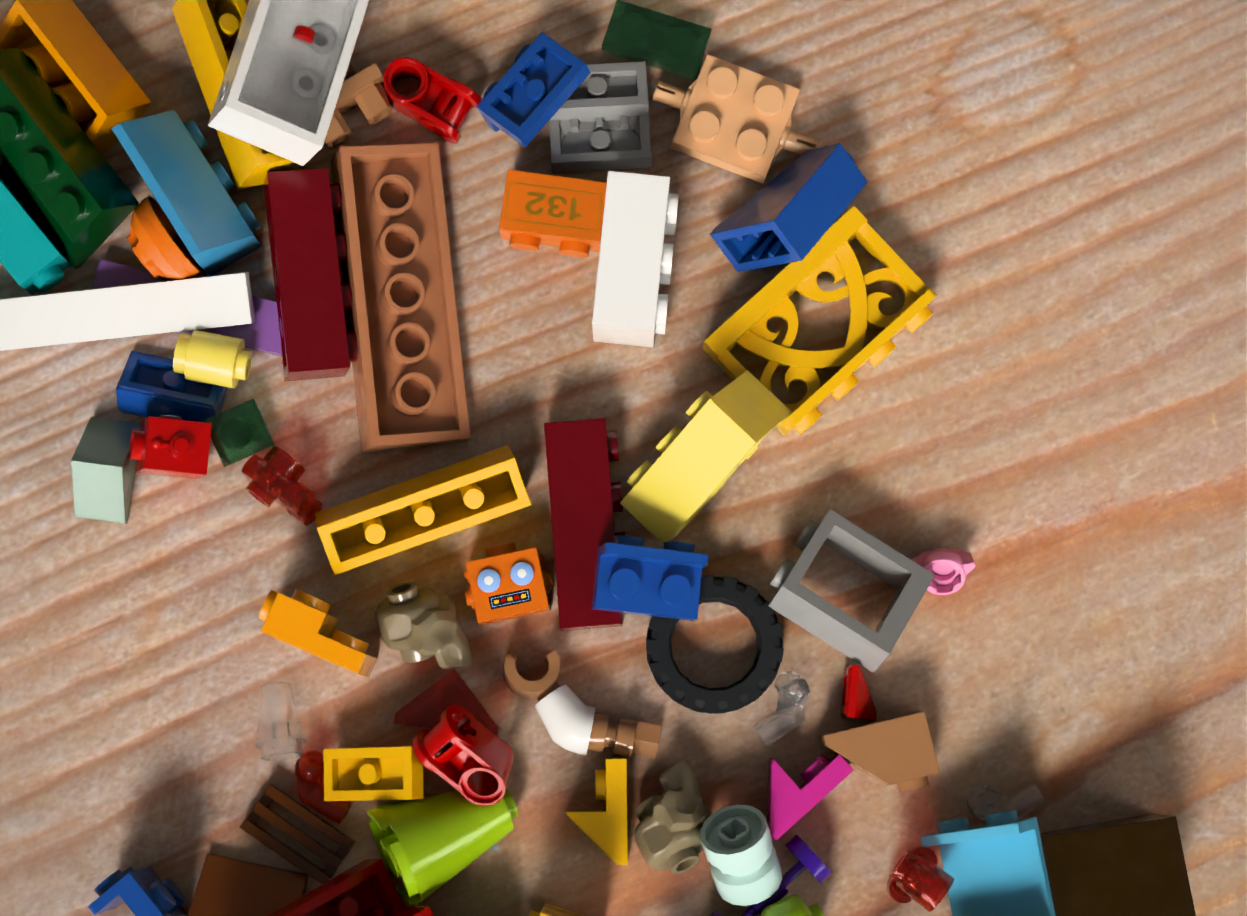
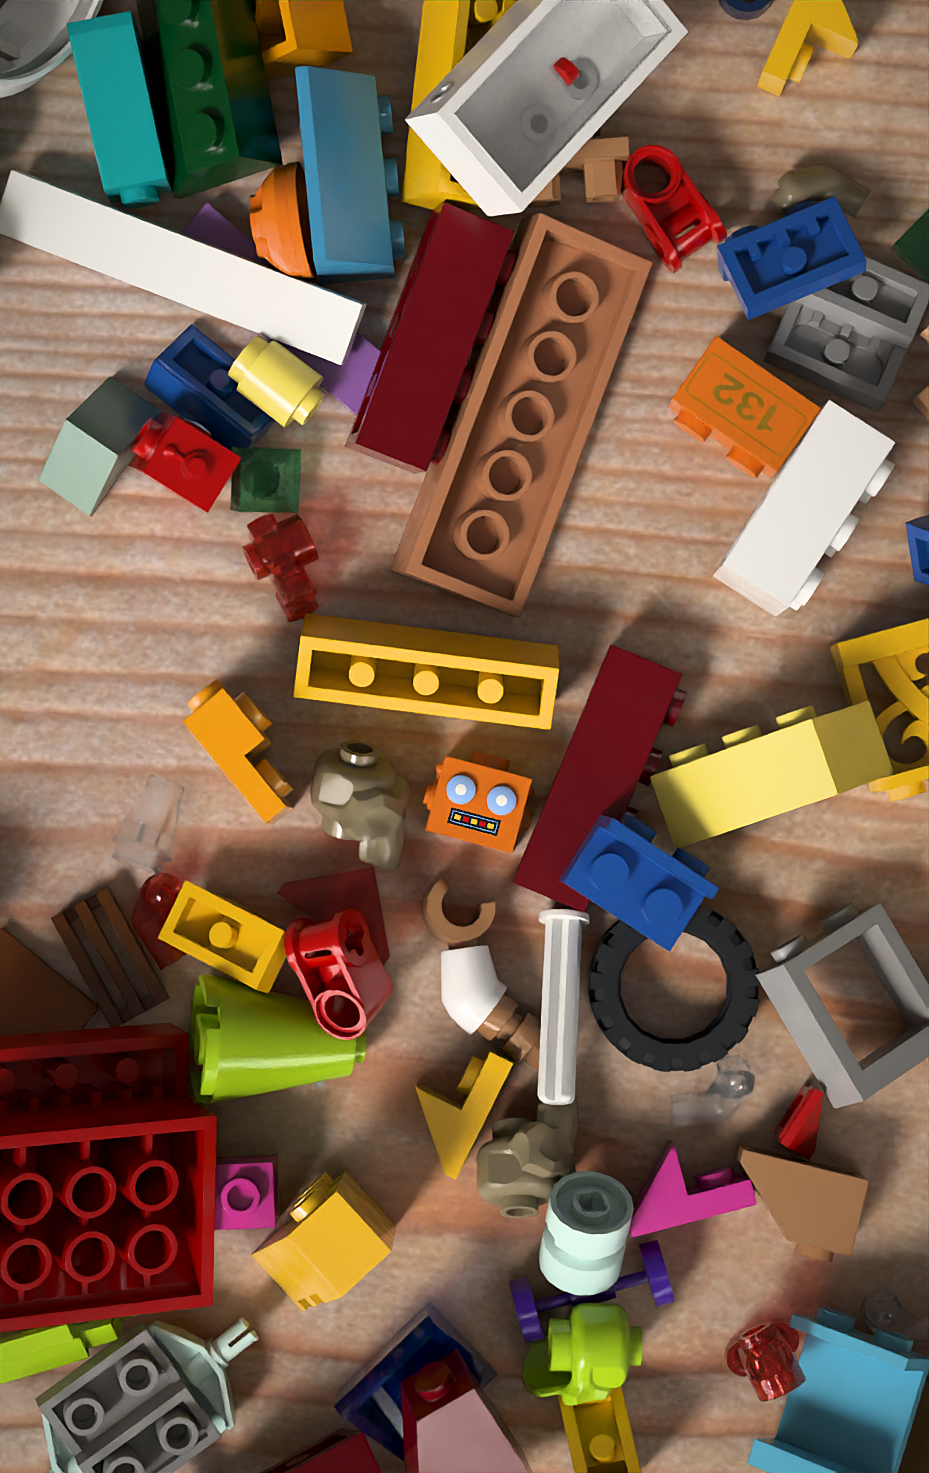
camera: 30 degrees right, 5 degrees up
(527, 30) = (818, 184): none -> dark tan arm
(639, 699) = (560, 1004): none -> white axle

